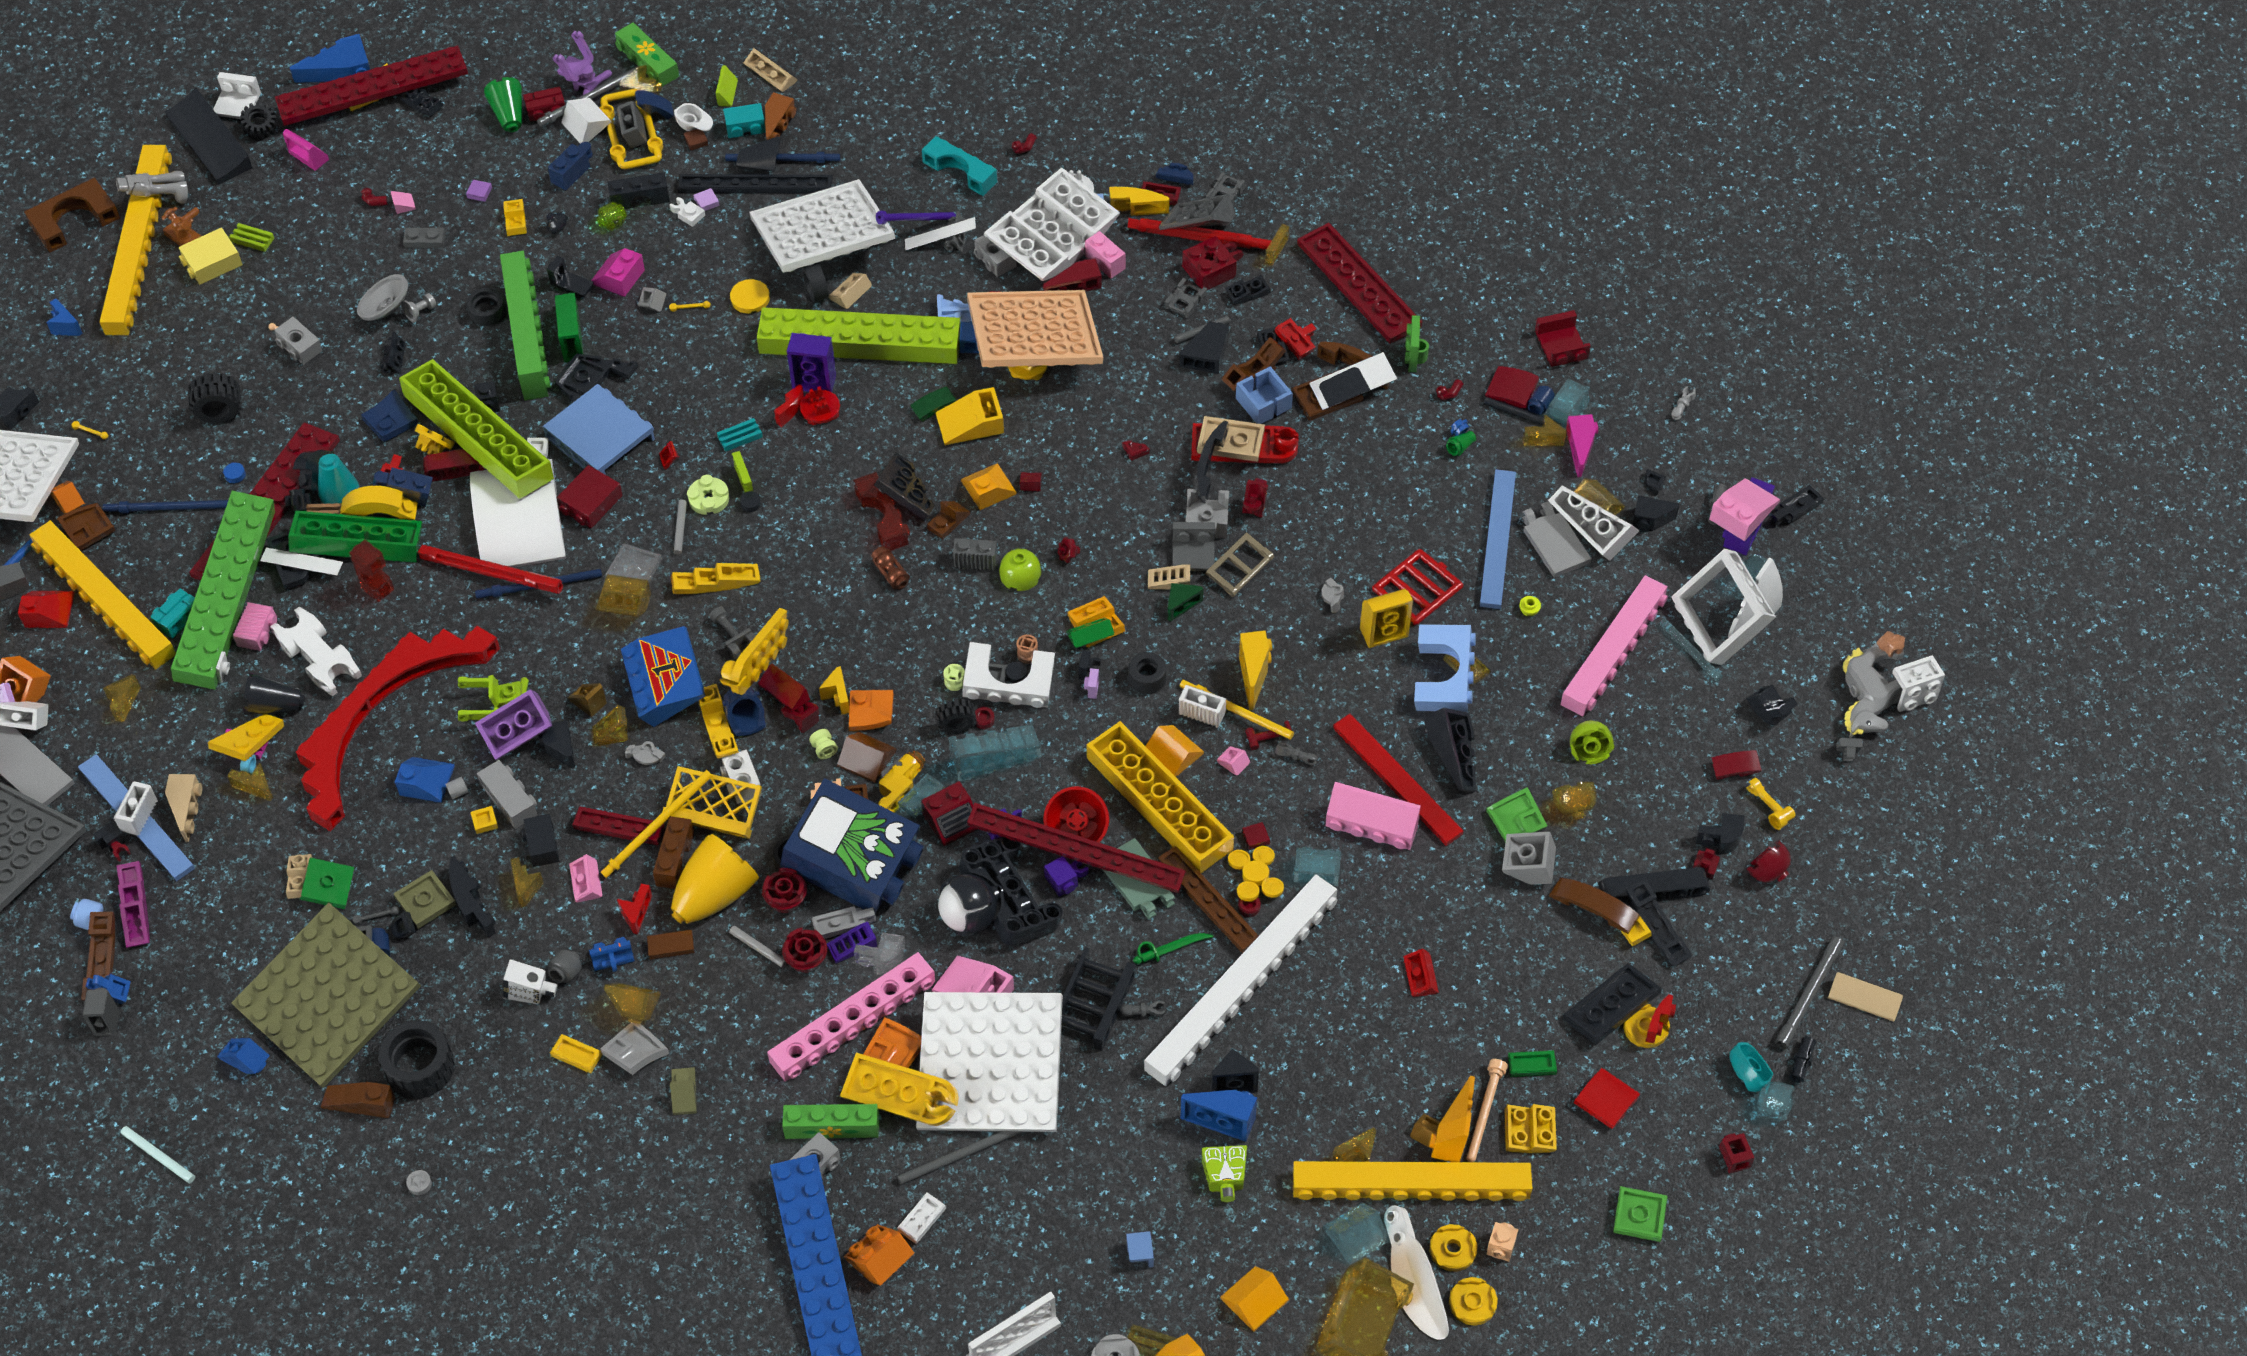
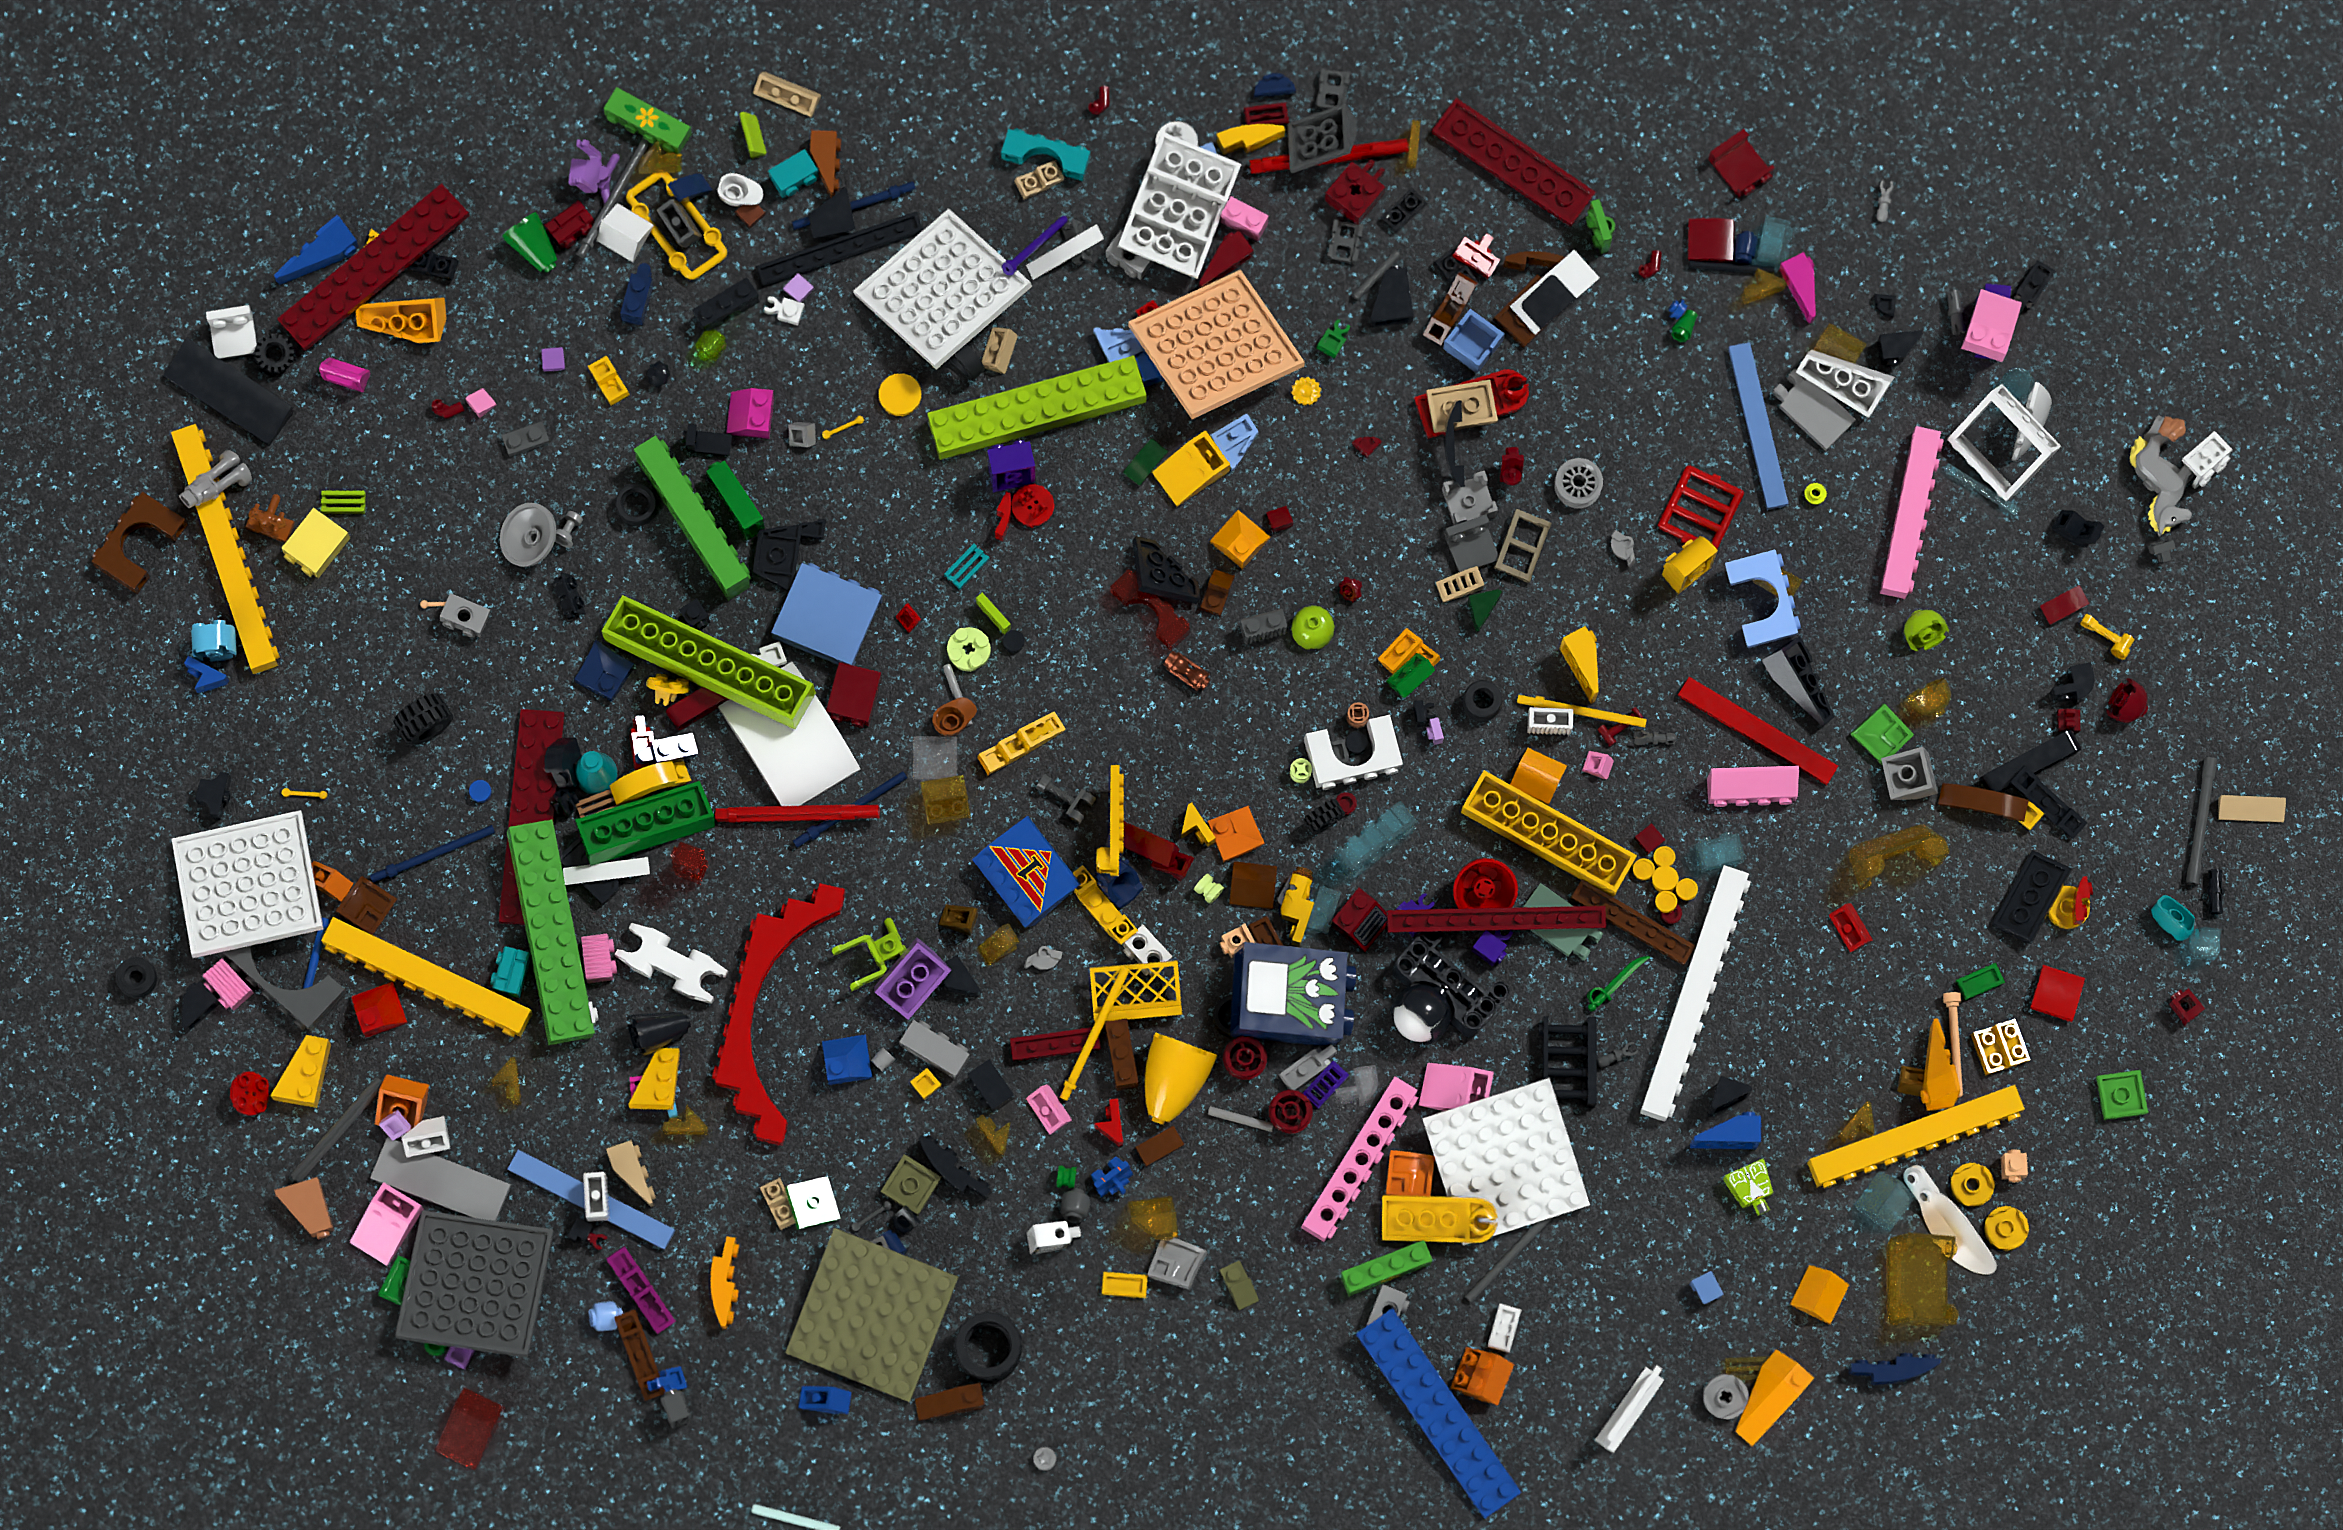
camera: 25 degrees left, 20 degrees up
(83, 294) = (213, 641): none -> medium azure brick
(204, 927) = (722, 1291): none -> light orange slope
(378, 127) = (409, 319): none -> light orange wedge
(569, 939) = (1066, 1176): none -> green wheel
(664, 538) = (954, 716): none -> dark orange piece
(950, 183) = (1039, 180): none -> tan slope
(1020, 410) = (1235, 439): none -> light blue wing
(1099, 392) = (1306, 391): none -> yellow piece
(1141, 364) = (1333, 340): none -> green plate
(1312, 531) = (1588, 467): none -> light grey wheel
(1519, 916) = (1869, 856): none -> clear yellow windscreen

